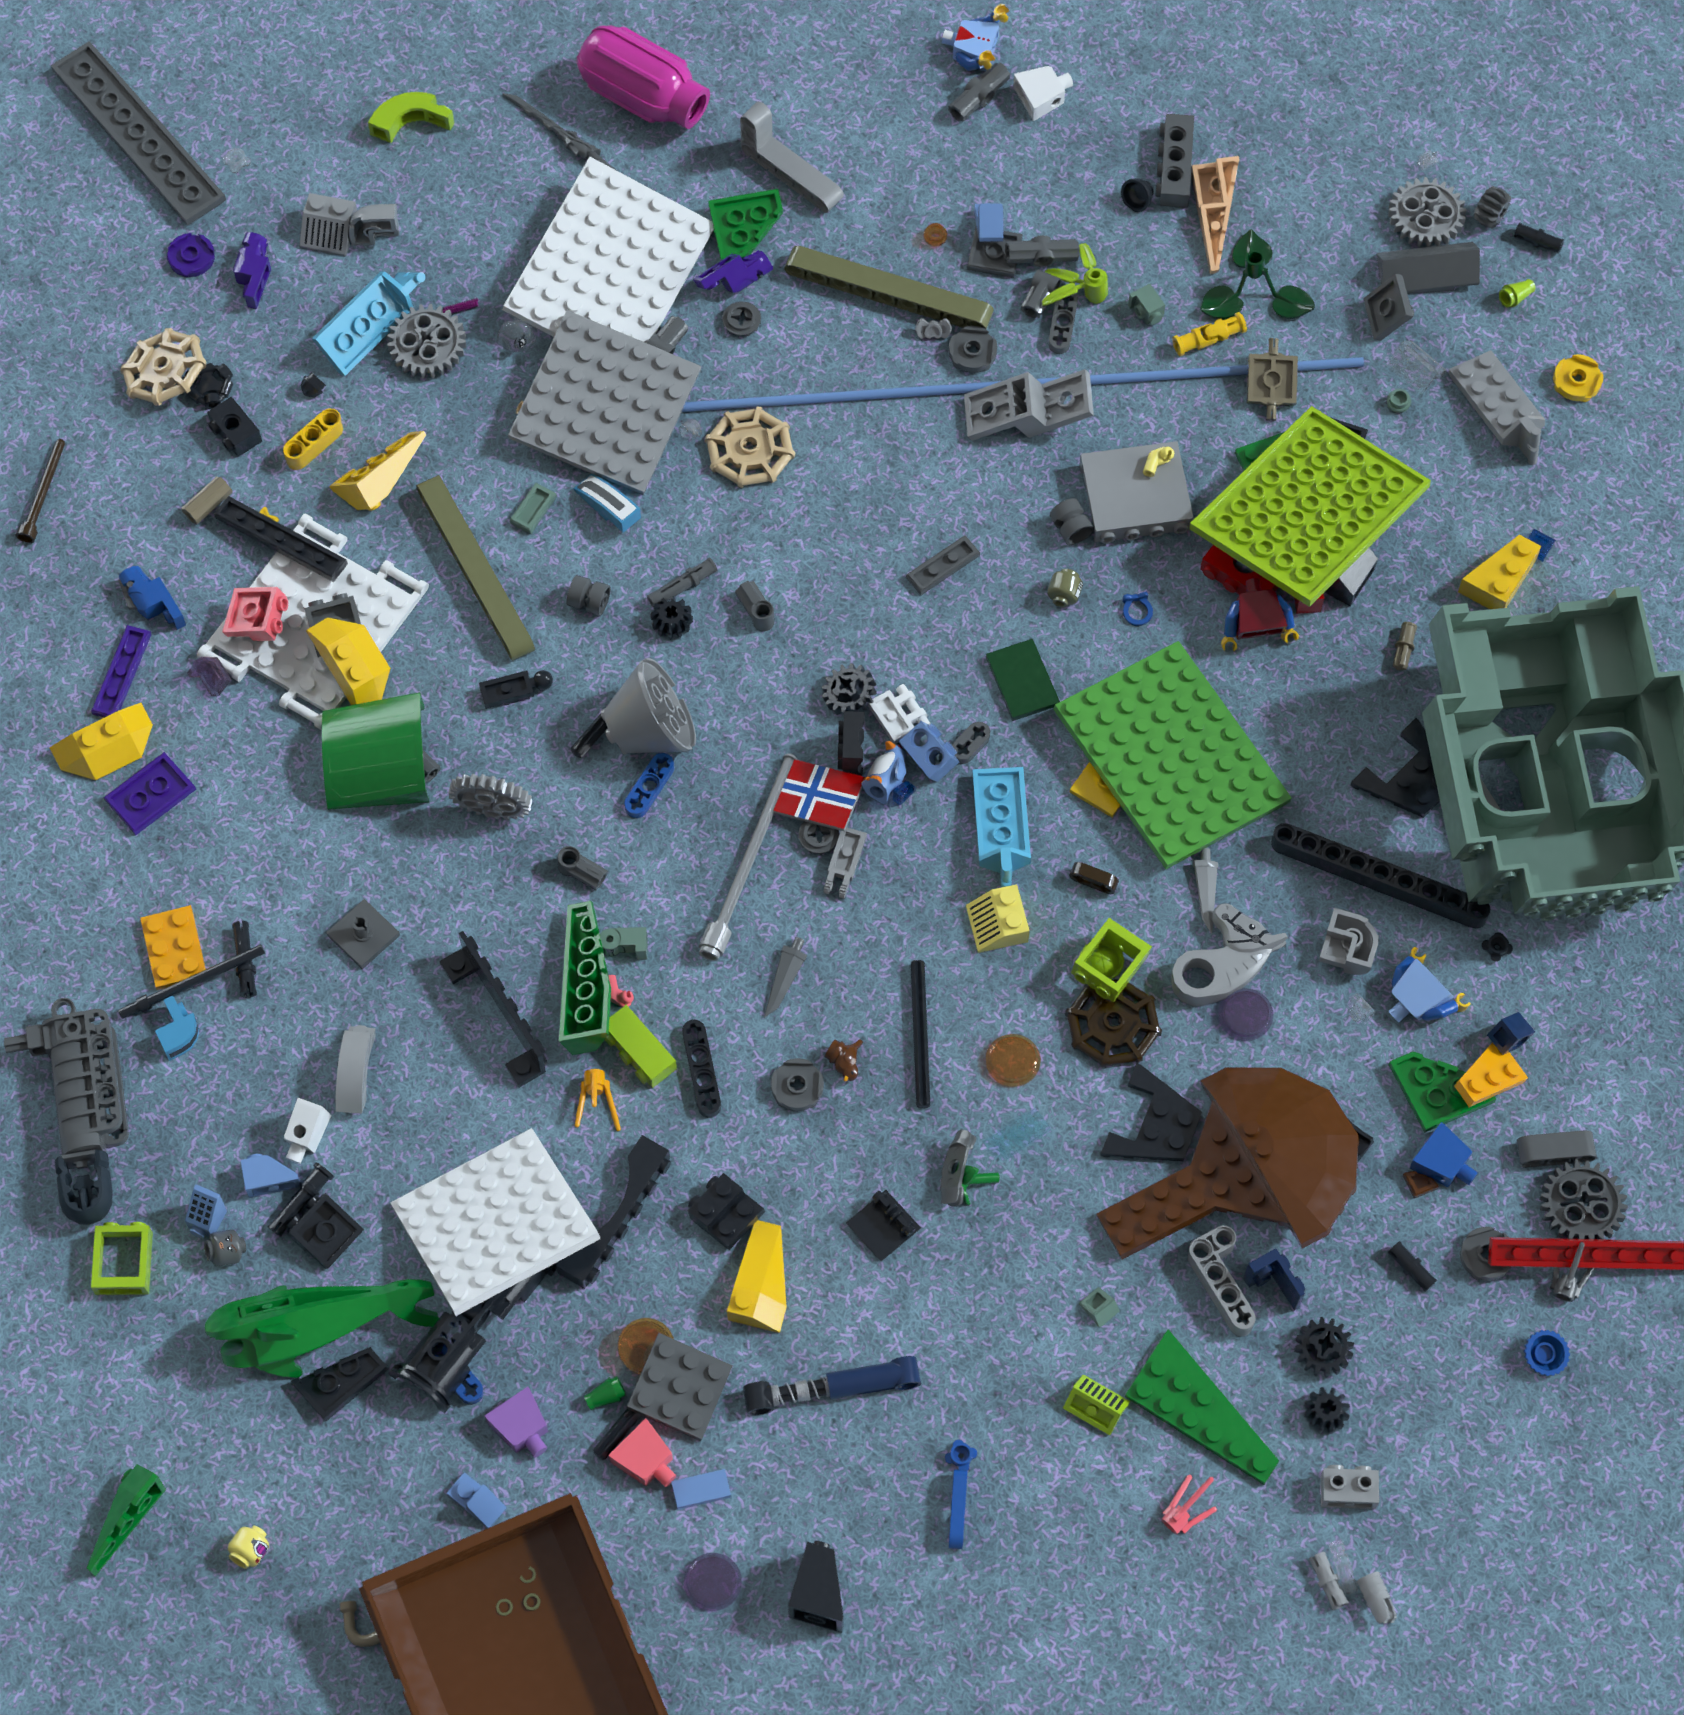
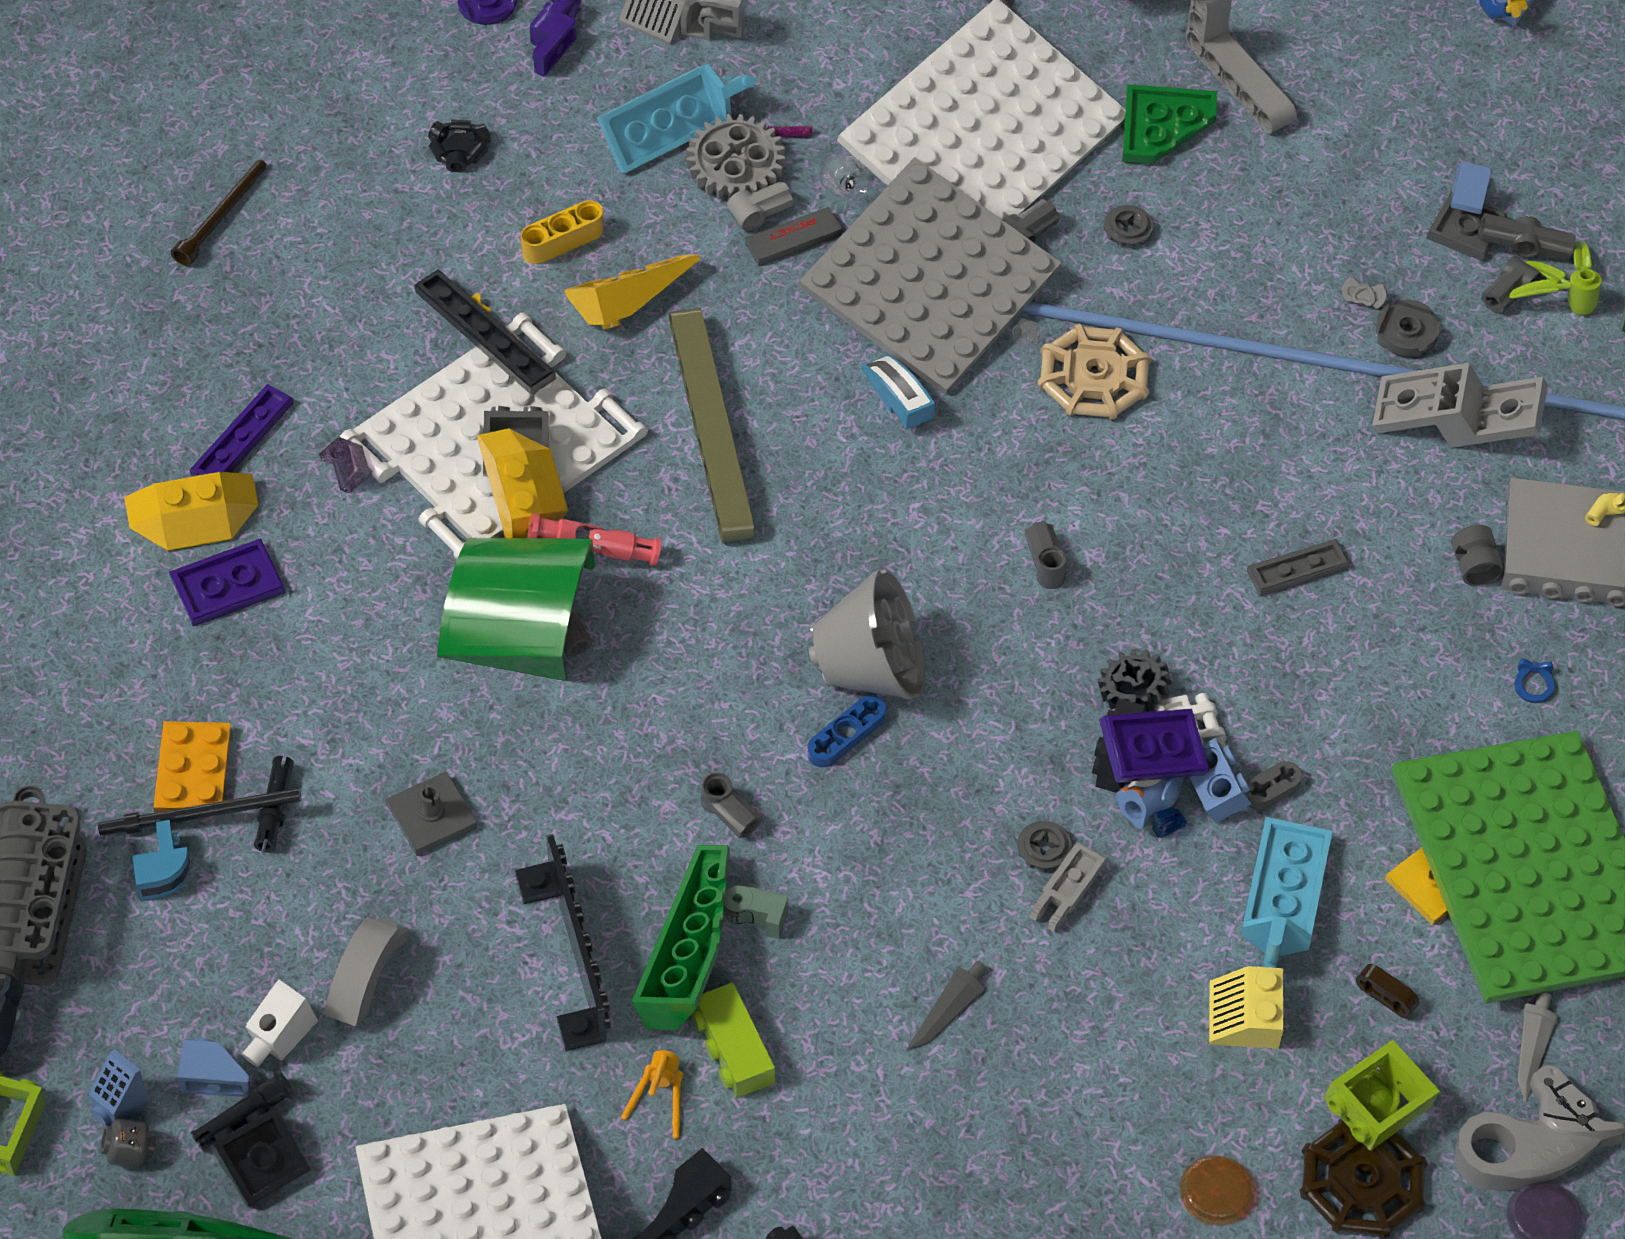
camera: 15 degrees right, 10 degrees down
(147, 361) = (410, 109): tan plate -> none
(149, 596) = (304, 358): blue plate -> none
(206, 500) = (411, 268): dark tan axle -> none
(229, 415) = (472, 196): black brick -> none
(255, 613) = (425, 405): coral plate -> none
(312, 385) = (581, 174): black plate -> none
(434, 686) = (611, 543): none -> coral piece
(453, 380) = (753, 208): none -> light grey piece
(490, 394) = (793, 236): none -> dark grey tile
(490, 796) = (640, 686): light grey gear -> none
(513, 687) = (713, 573): black plate -> none
(533, 508) = (804, 376): sand green tile -> none
(588, 595) = (850, 489): dark grey wheel -> none
(589, 737) = (788, 656): black axle -> none
(618, 996) = (725, 971): coral arm -> none
(674, 625) = (936, 541): black gear -> none
(691, 577) = (974, 502): dark grey pin -> none
(701, 1068) = (806, 1090): black beam -> none
(735, 272) = (1135, 170): dark purple plate -> none
(797, 1099) = (919, 1162): dark grey plate -> none
(801, 793) = (1032, 787): flag -> none
(844, 1058) = (995, 1126): reddish brown animal -> none
(879, 741) = (1154, 745): none -> dark purple tile
(887, 288) = (1320, 233): olive beam -> none
(920, 1034) = (1103, 1125): black axle -> none
(935, 228) = (1398, 182): clear orange plate -> none
(979, 91) = (1498, 43): dark grey piece -> none
(1022, 679) = (1361, 727): dark green tile -> none
(1041, 90) = (1576, 59): white torso -> none
(1065, 587) = (1447, 630): olive head -> none
(1066, 330) = (1531, 335): dark grey beam -> none

